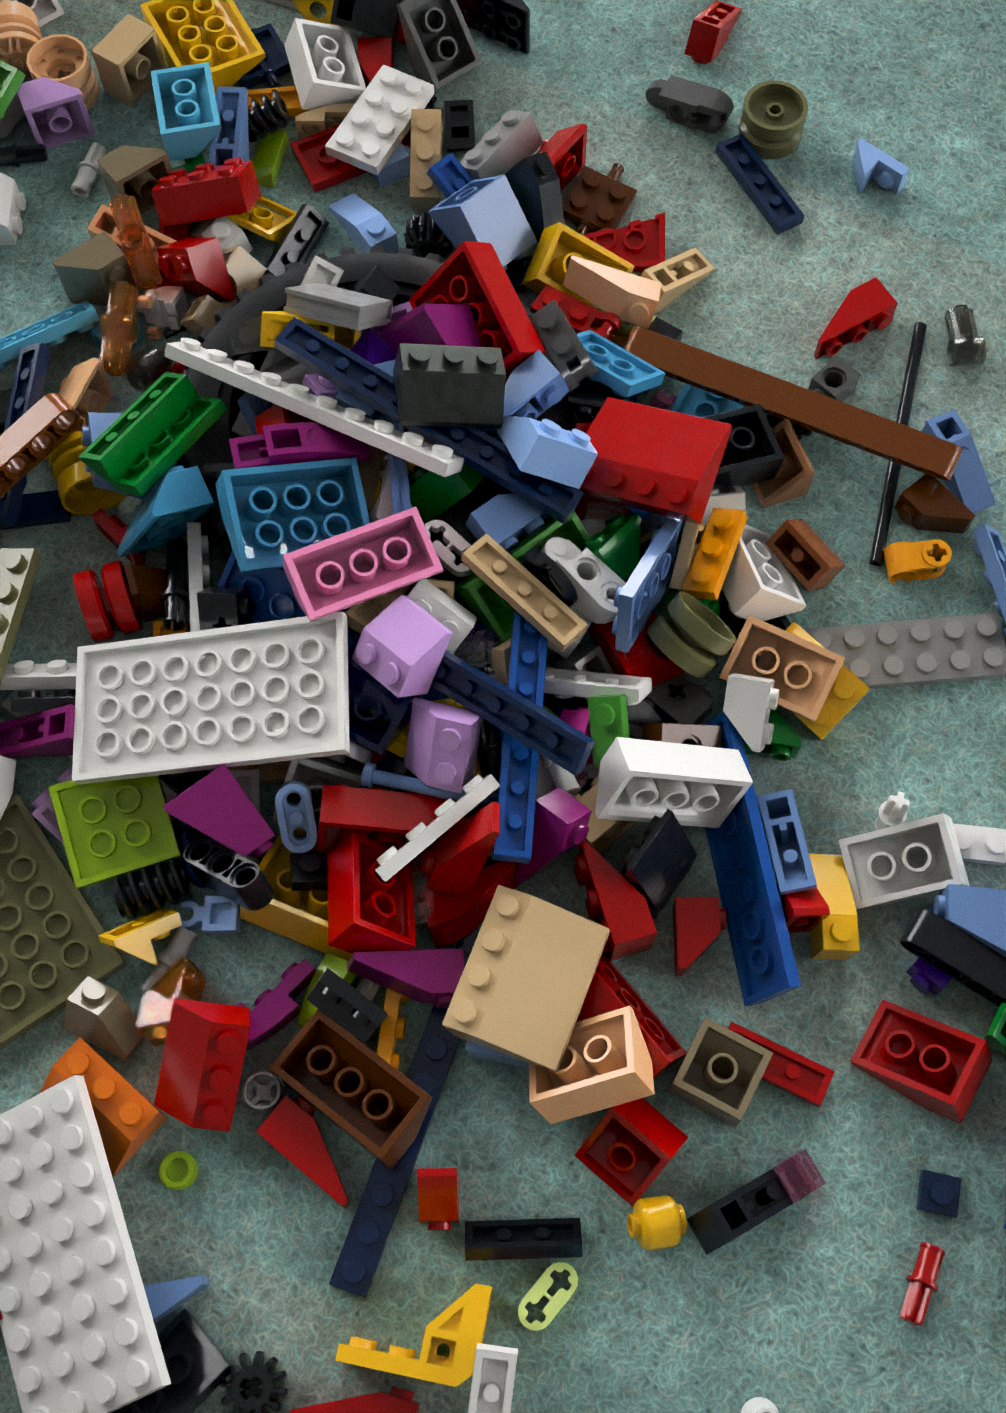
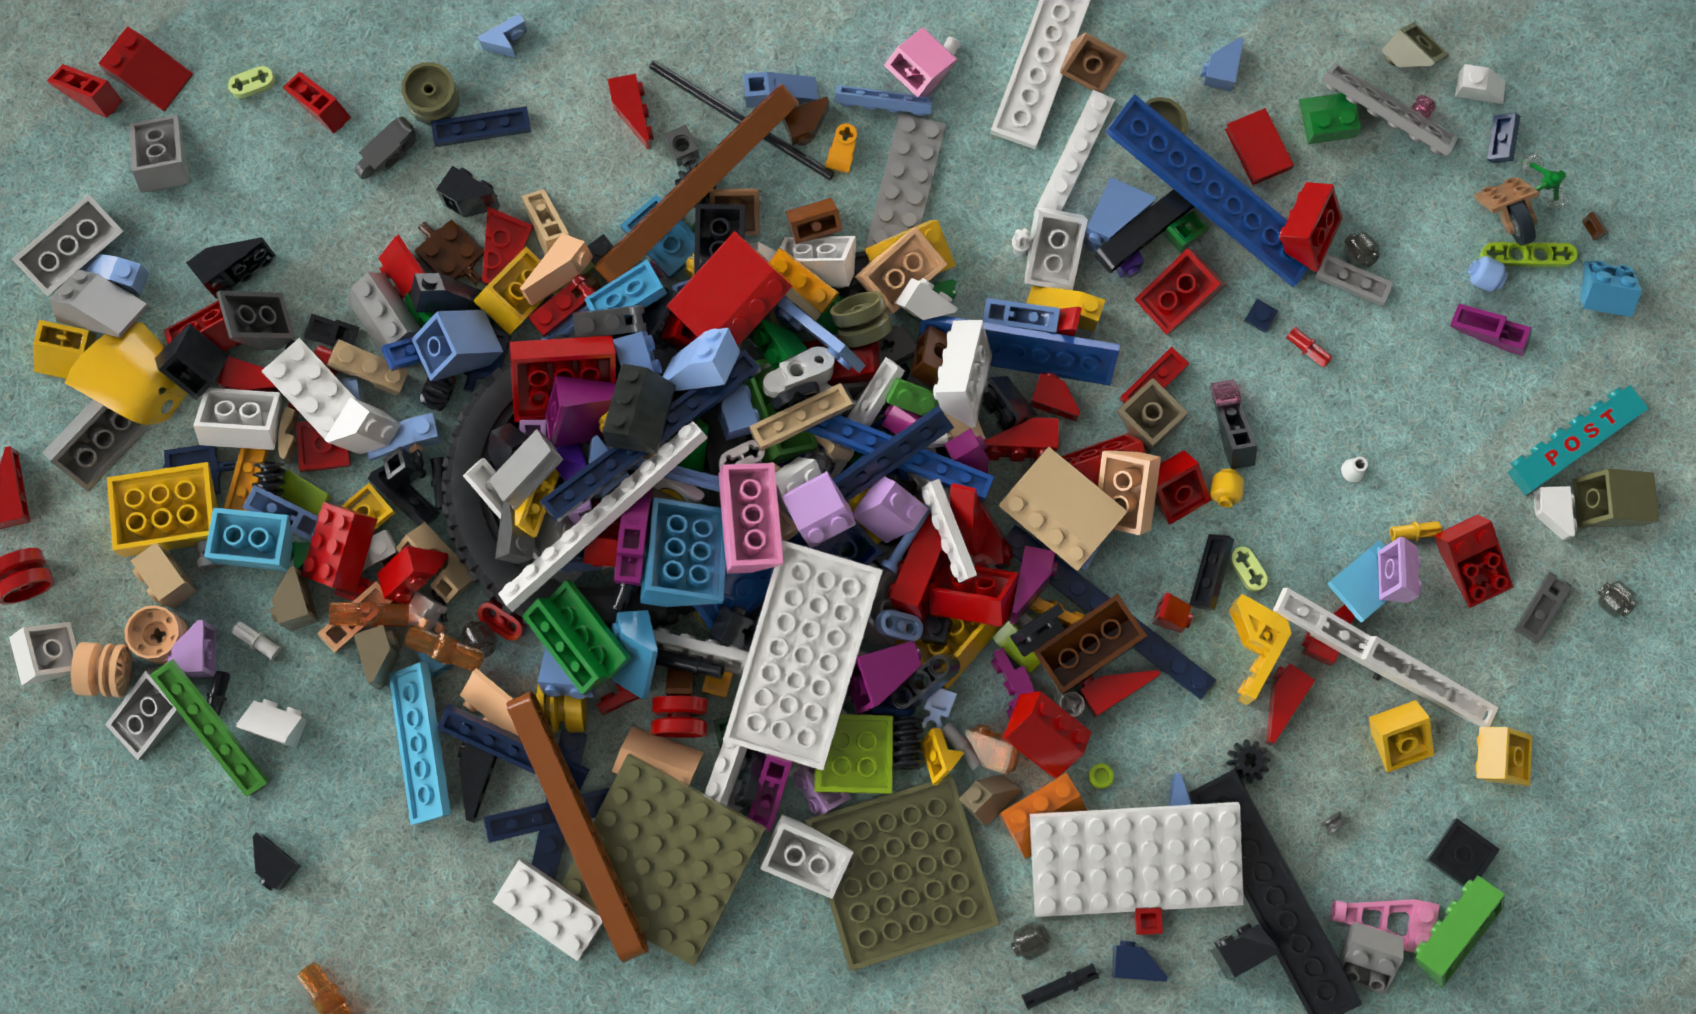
camera: 75 degrees left, 10 degrees up
(52, 612) = (666, 755): none -> light nougat slope
(325, 231) = (405, 466): none -> black piece
(354, 171) = (362, 428): none -> white slope
(669, 184) = (465, 194): none -> black slope
(964, 342) = (679, 40): clear smoke piece -> none

